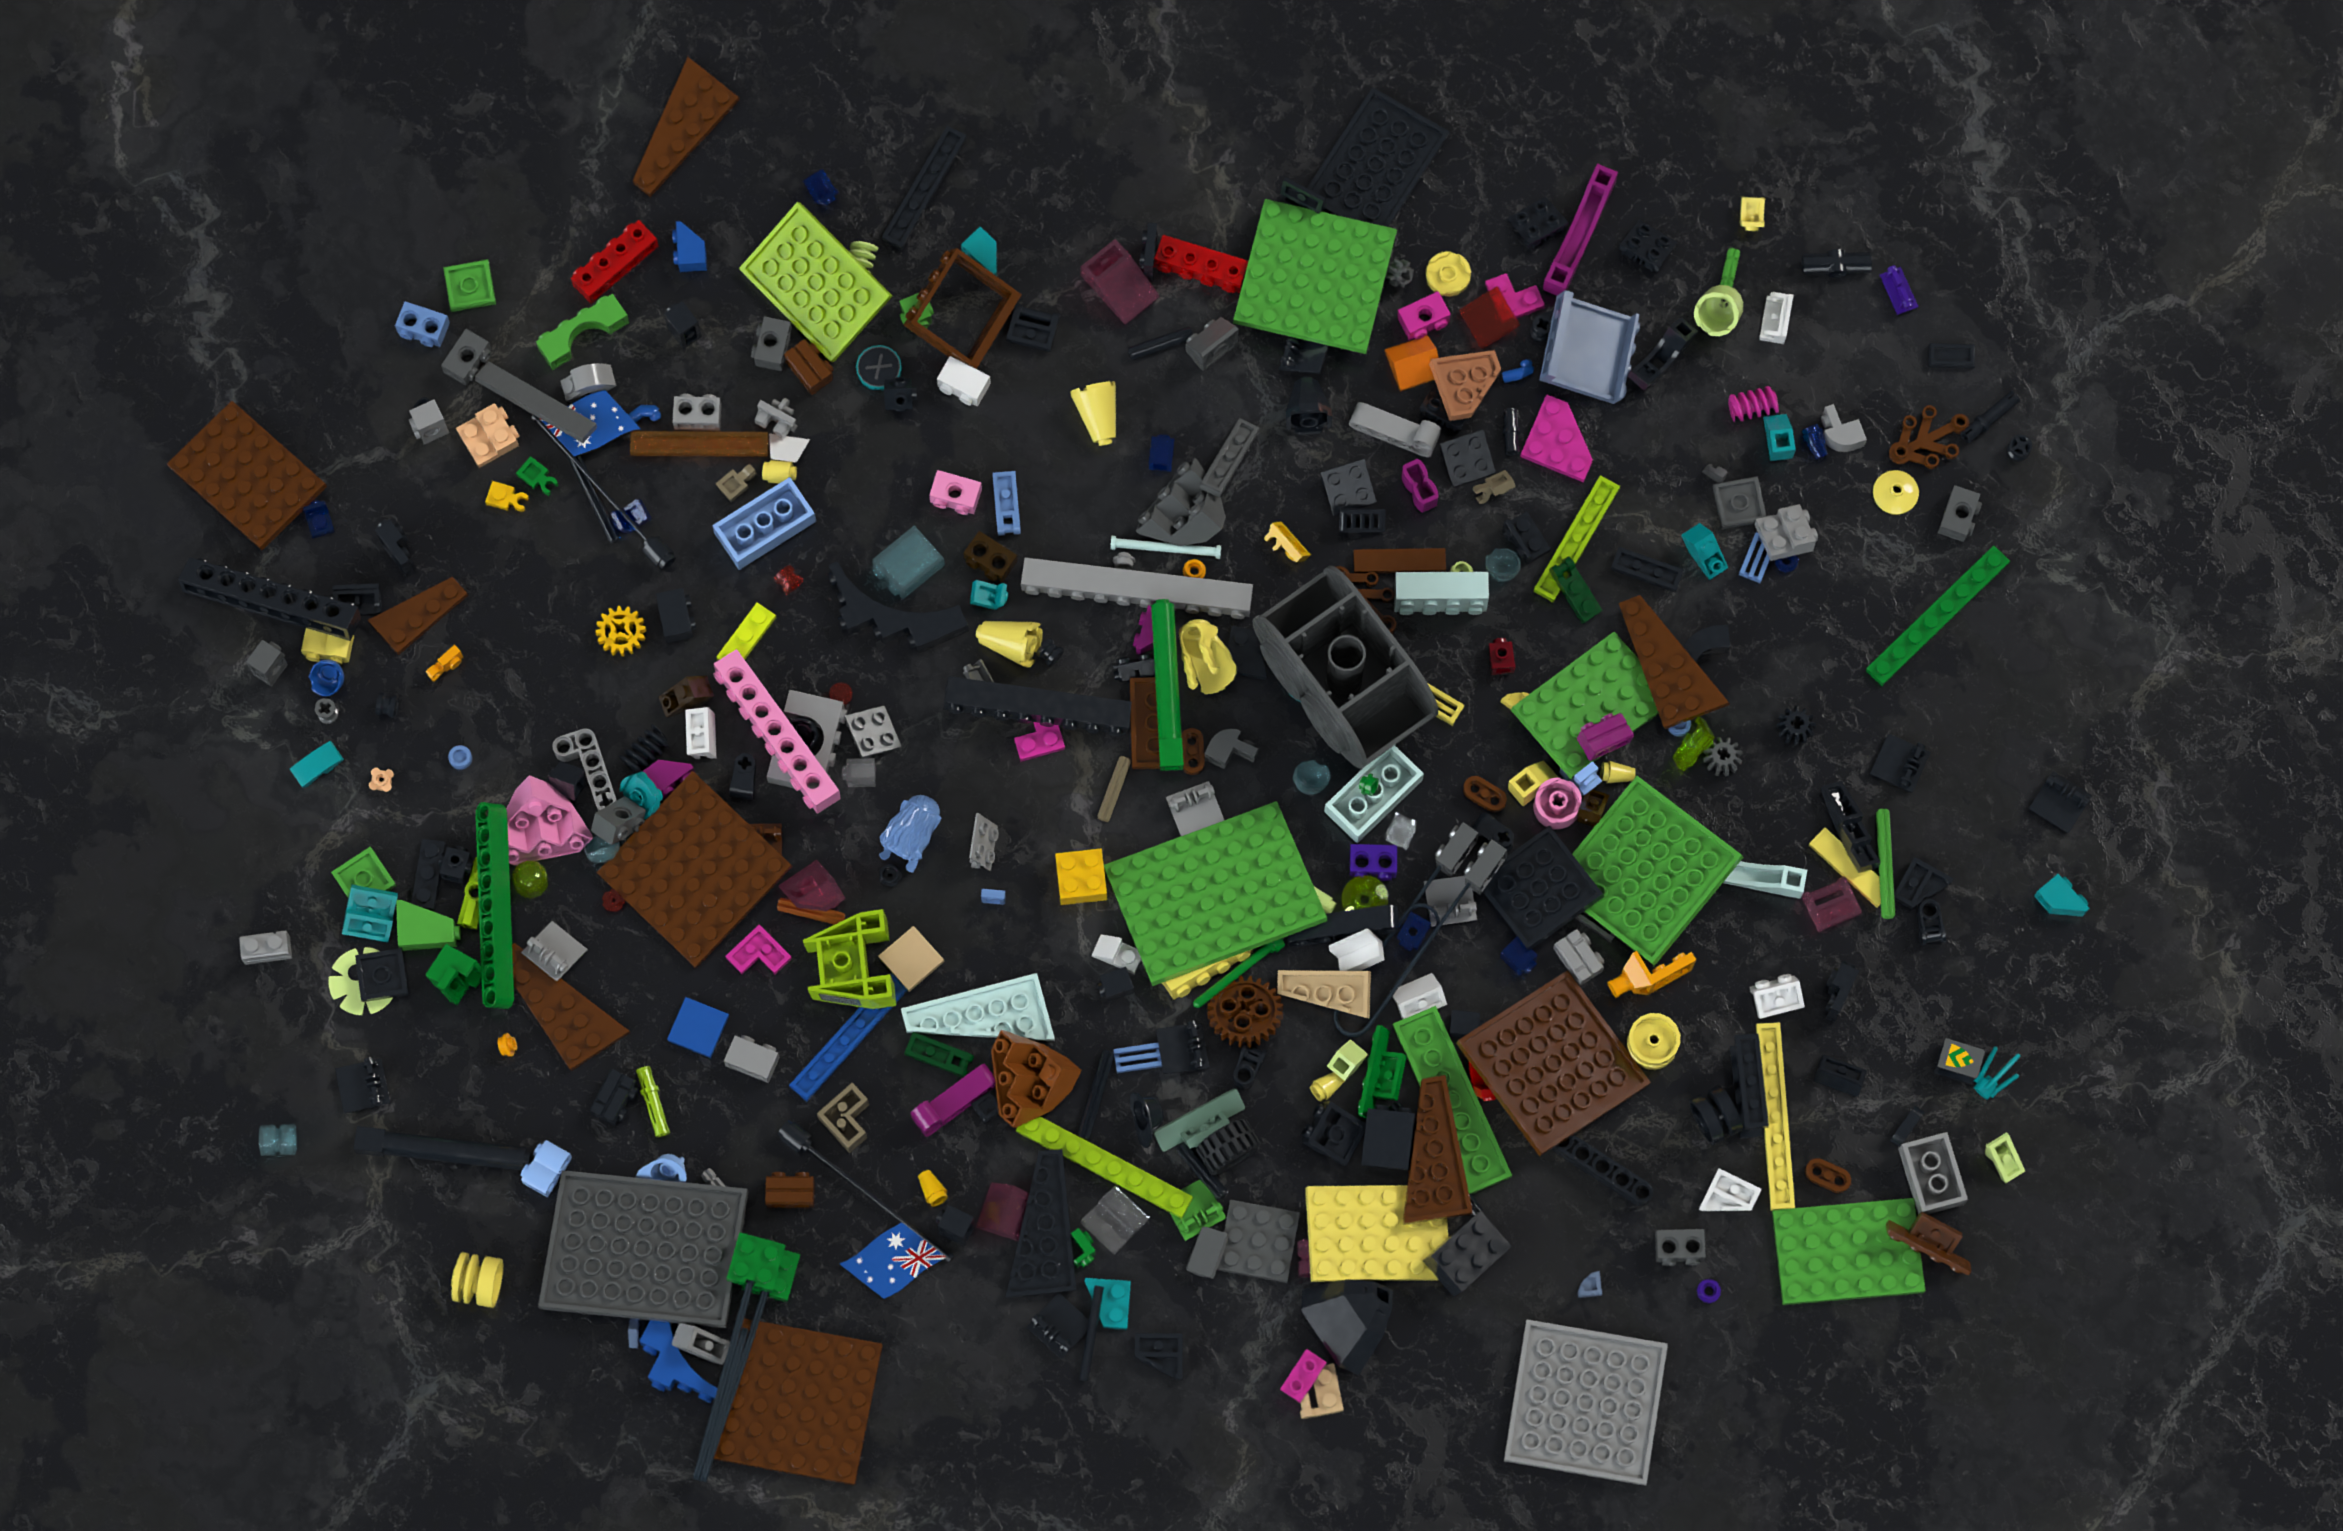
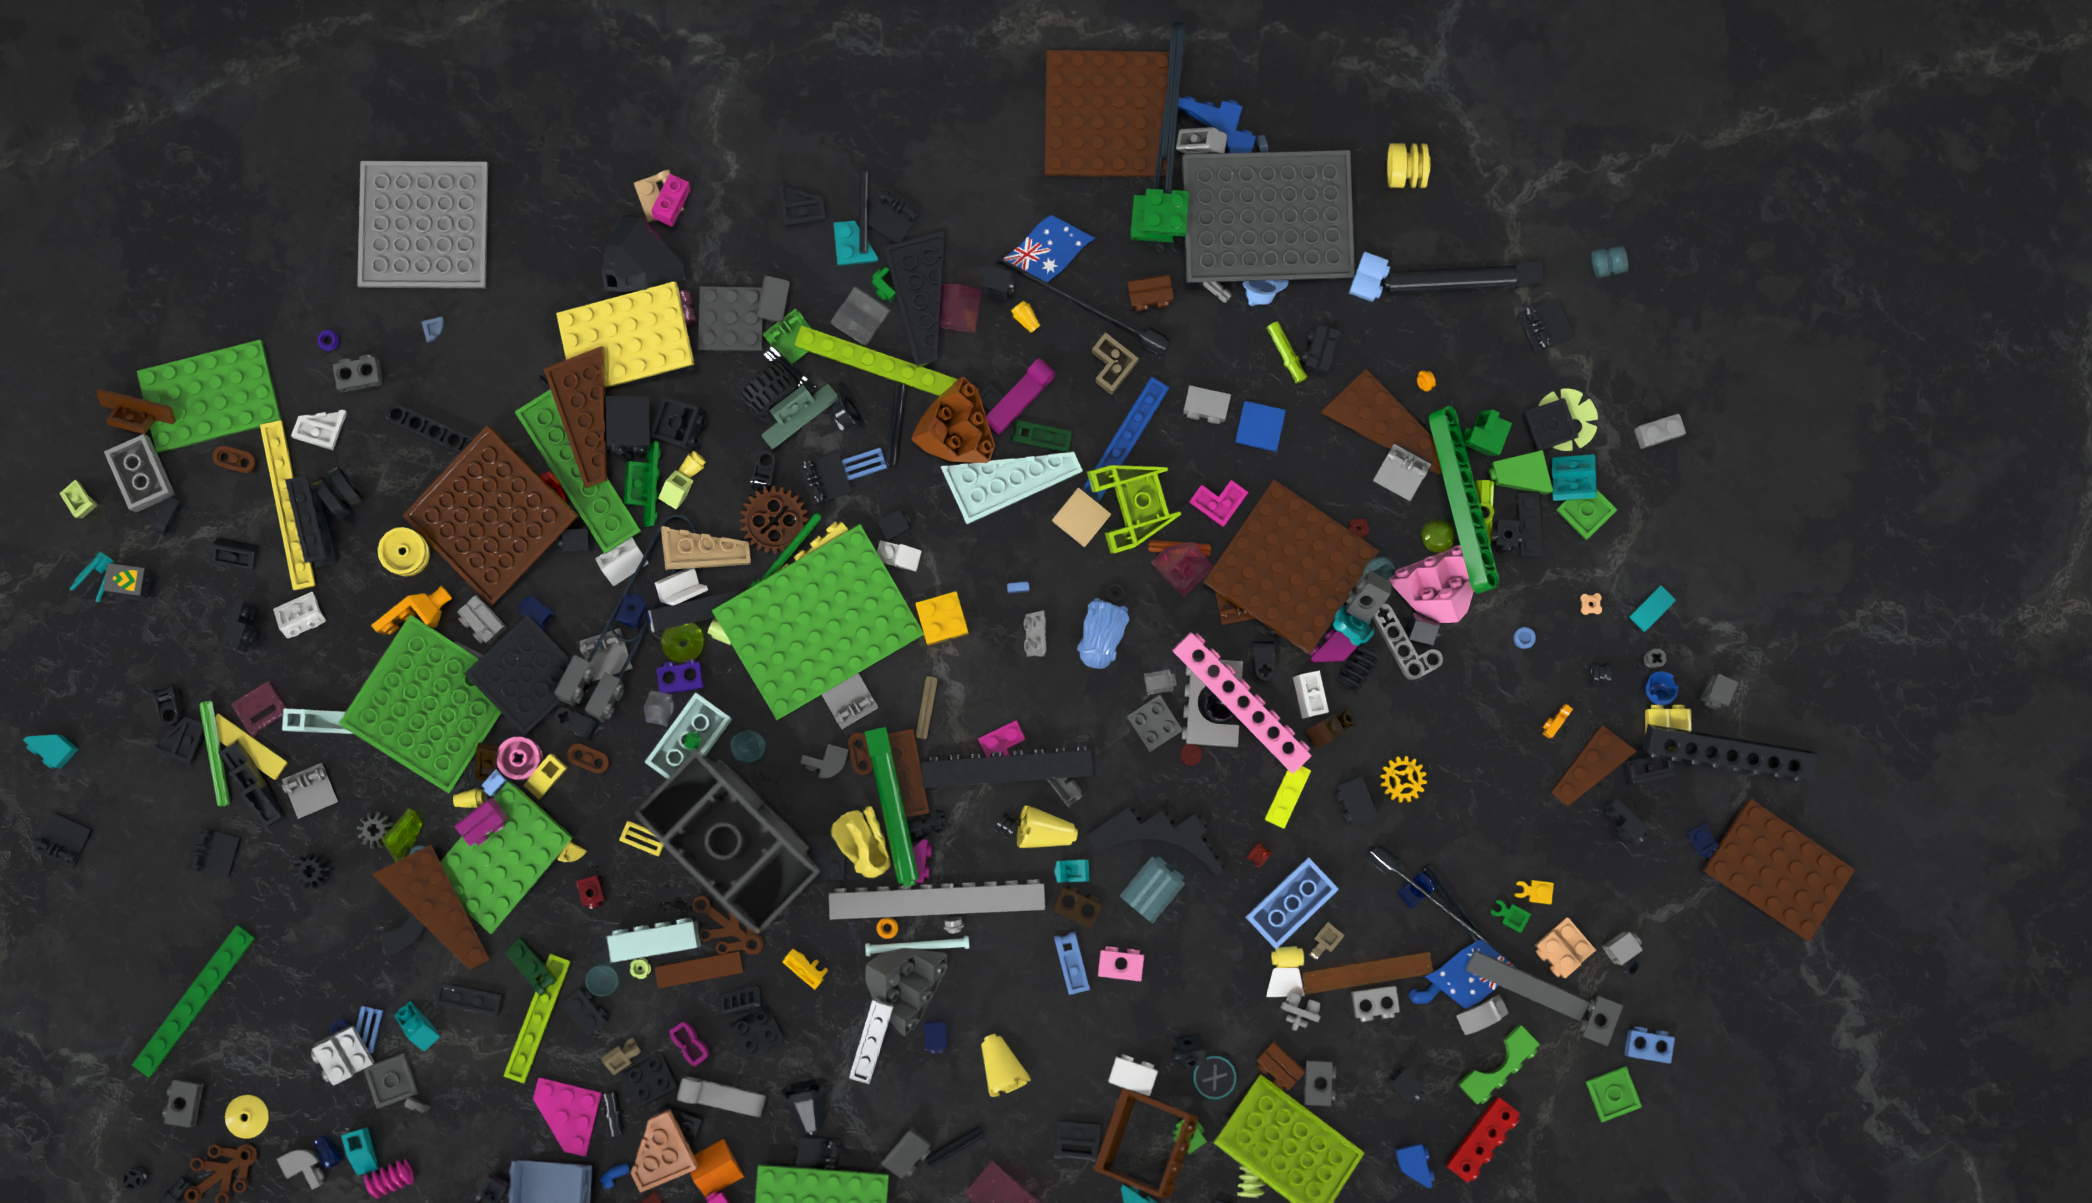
camera: 170 degrees right, 10 degrees up
(1467, 1253) = (543, 332): black brick -> none
(1788, 810) = (309, 790): none -> light grey hinge

